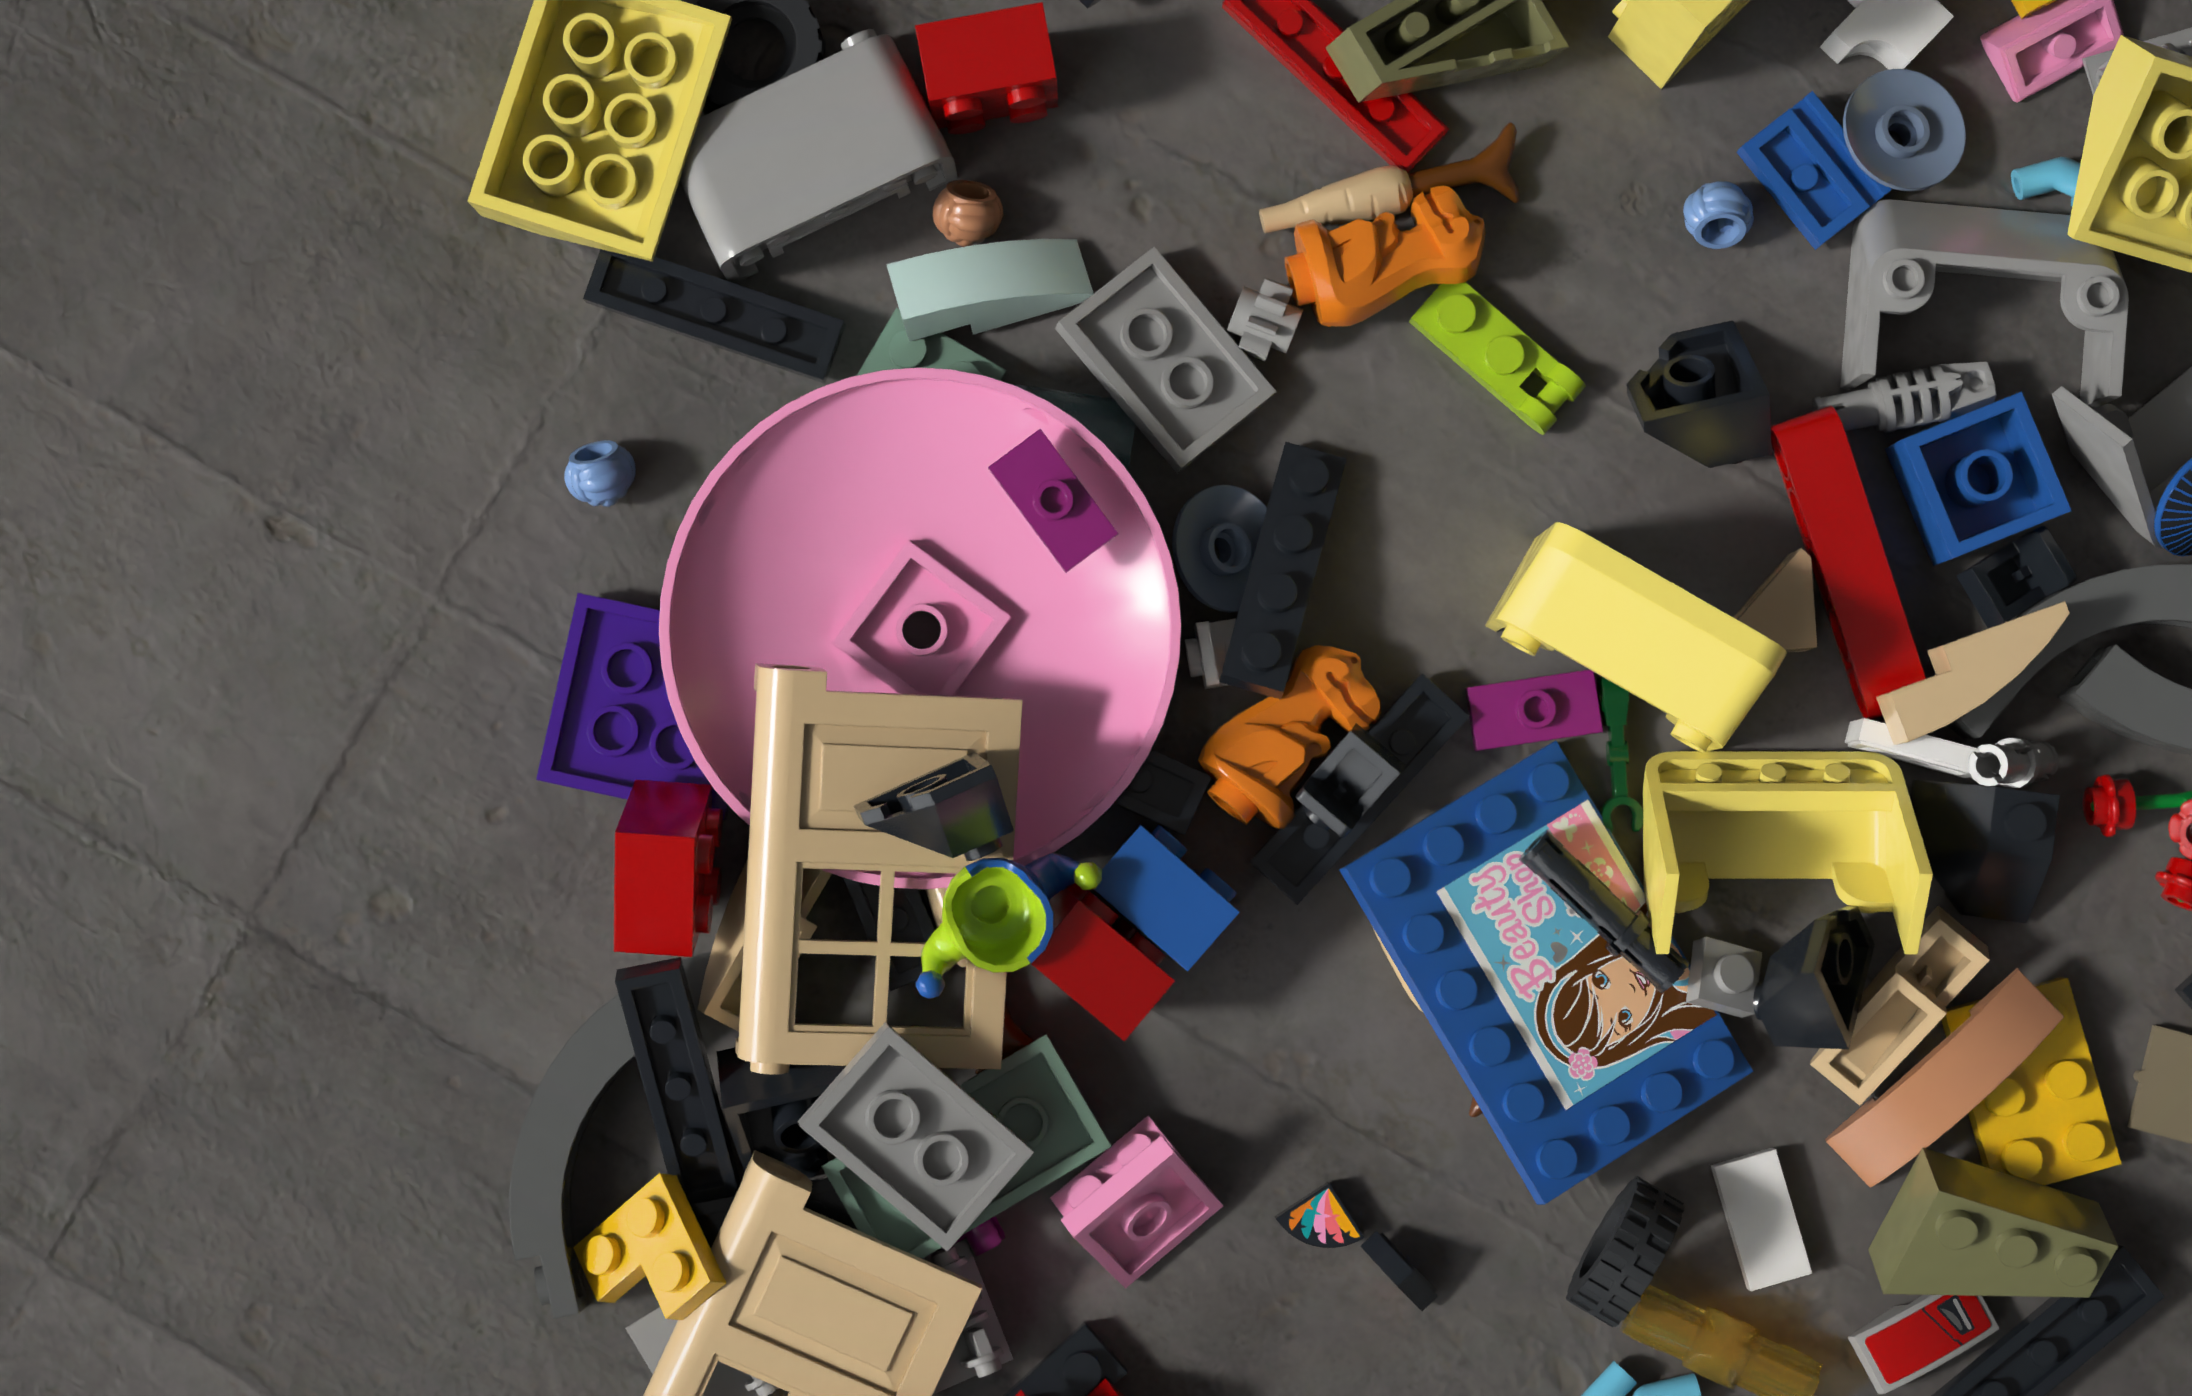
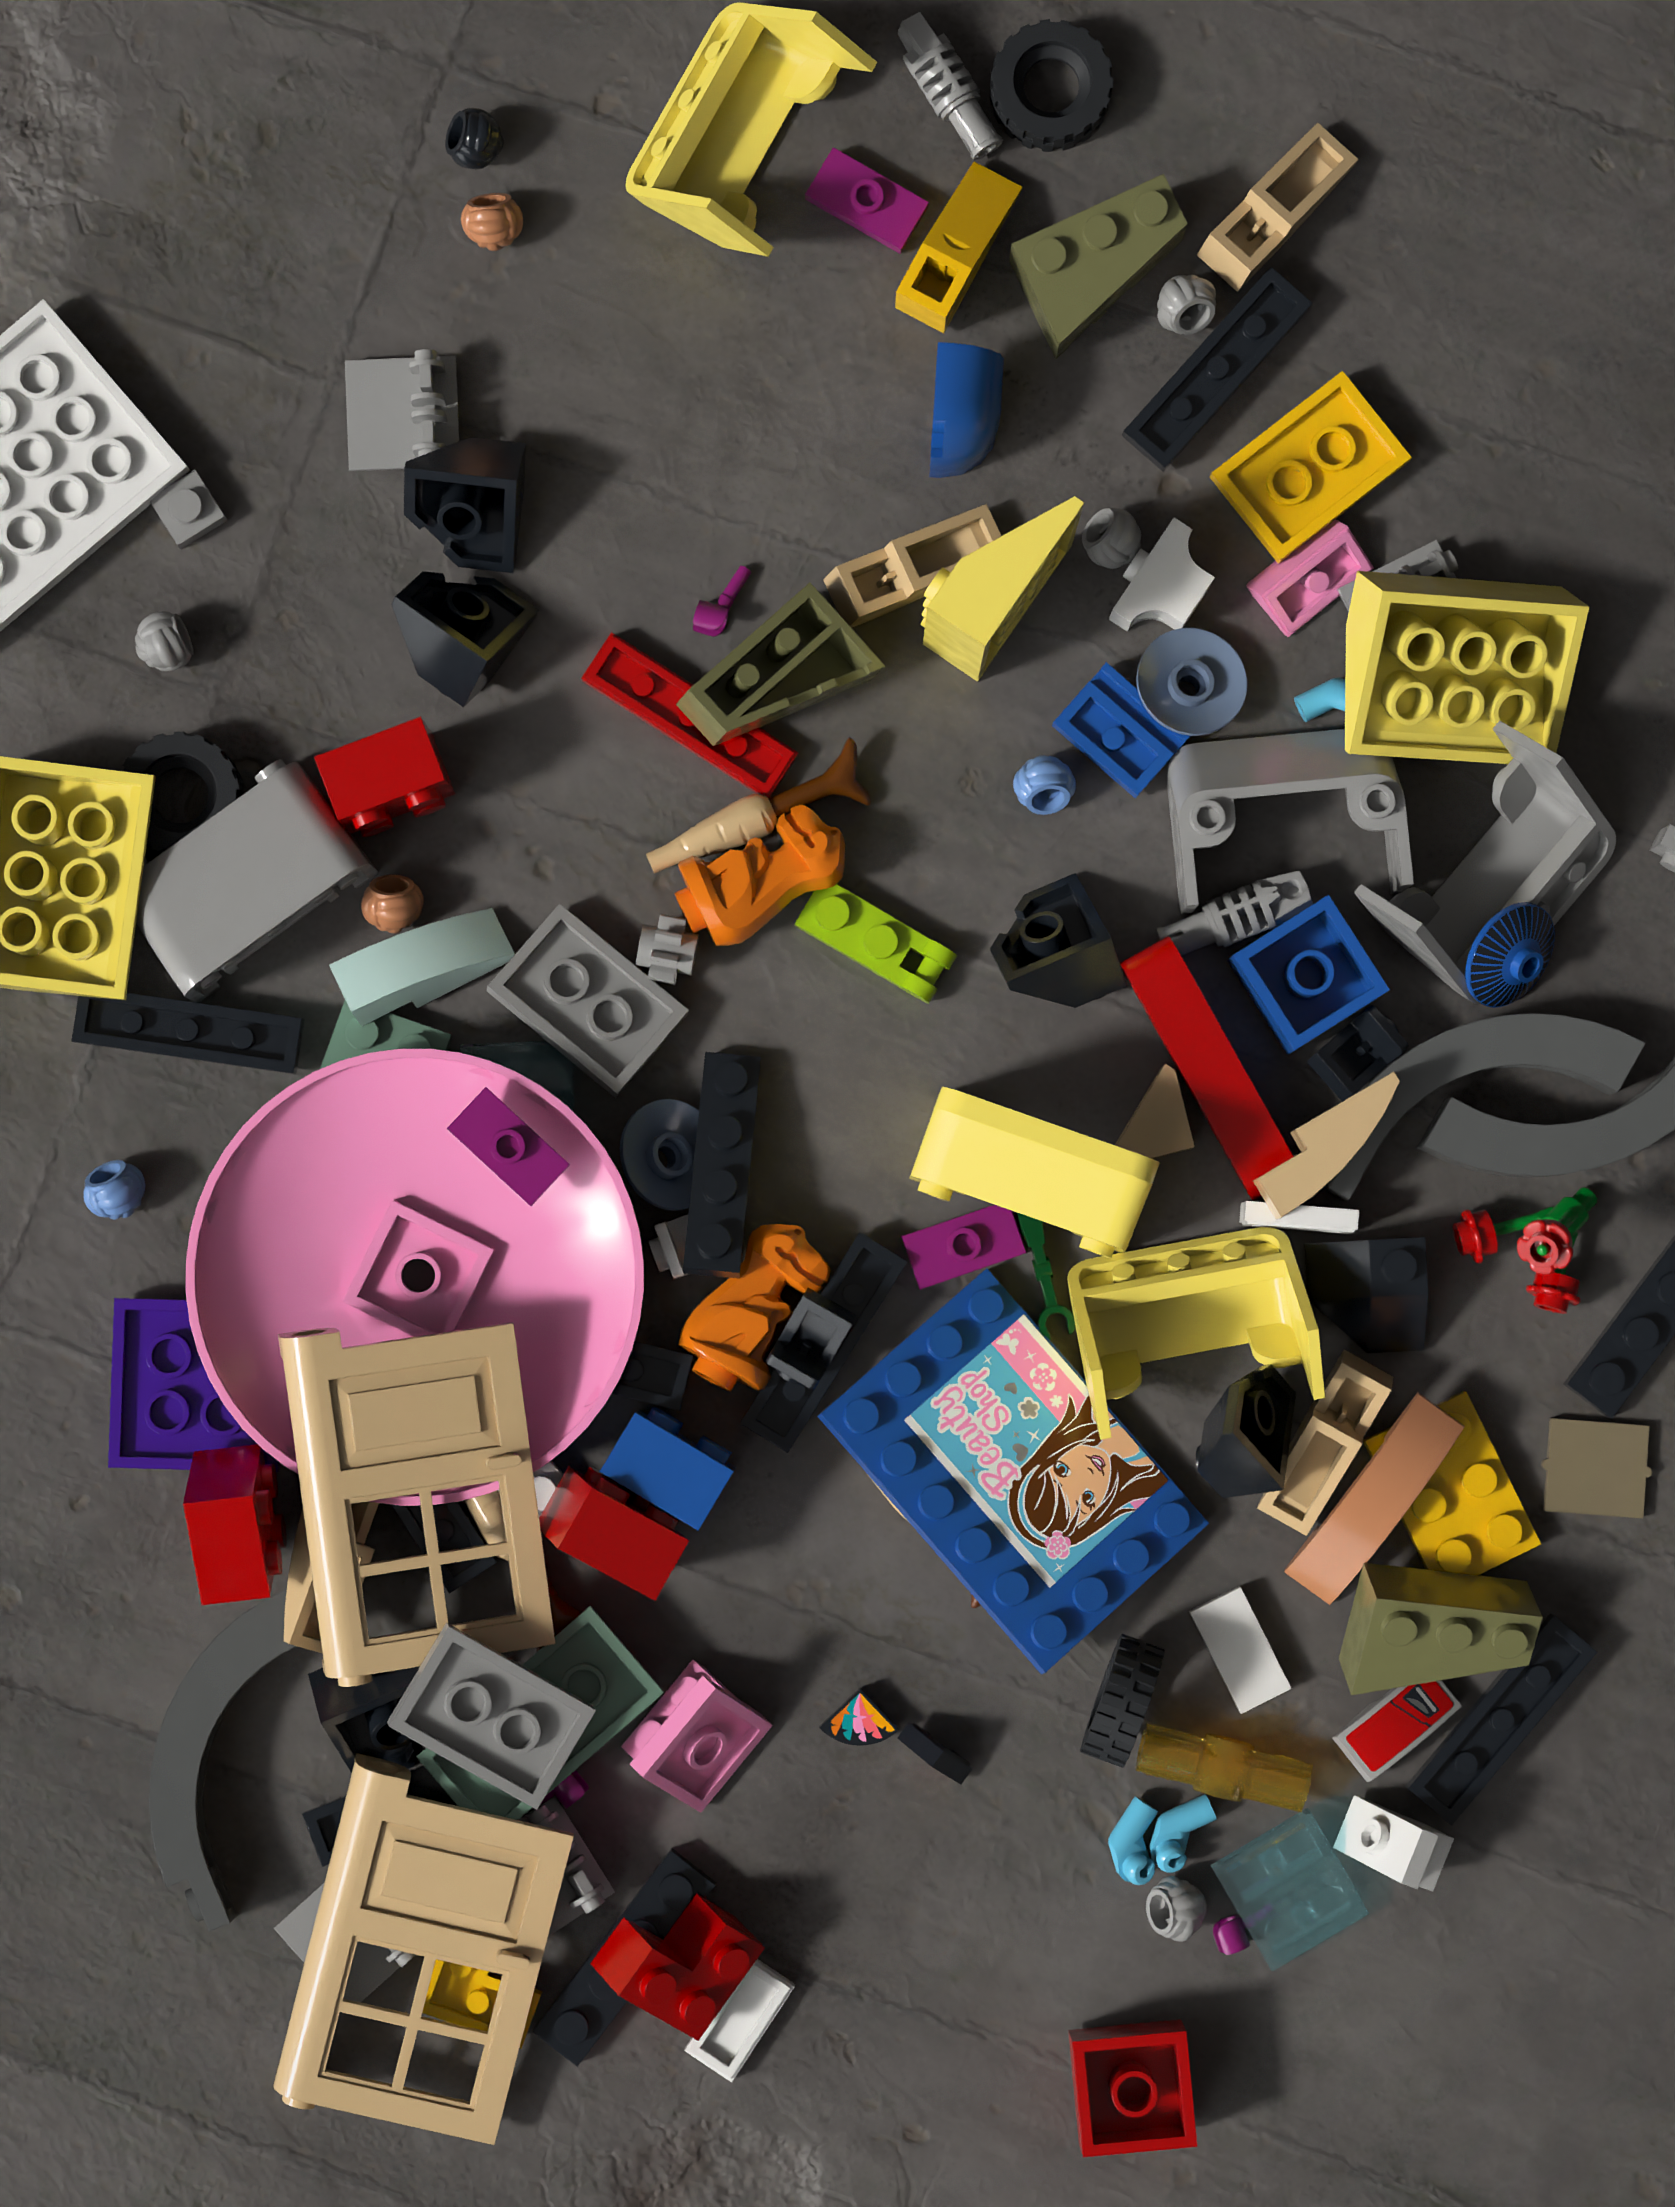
camera: 10 degrees left, 0 degrees up
(657, 1239) = (284, 1846): yellow plate -> none
(678, 1078) = (278, 1706): black plate -> none
(945, 810) = (461, 1433): black slope -> none
(999, 915) = (526, 1513): lime piece -> none
(1592, 900) = (1042, 1403): black pin -> none
(1723, 976) = (1168, 1446): light grey plate -> none
(2013, 763) = (1381, 1216): light grey pin -> none

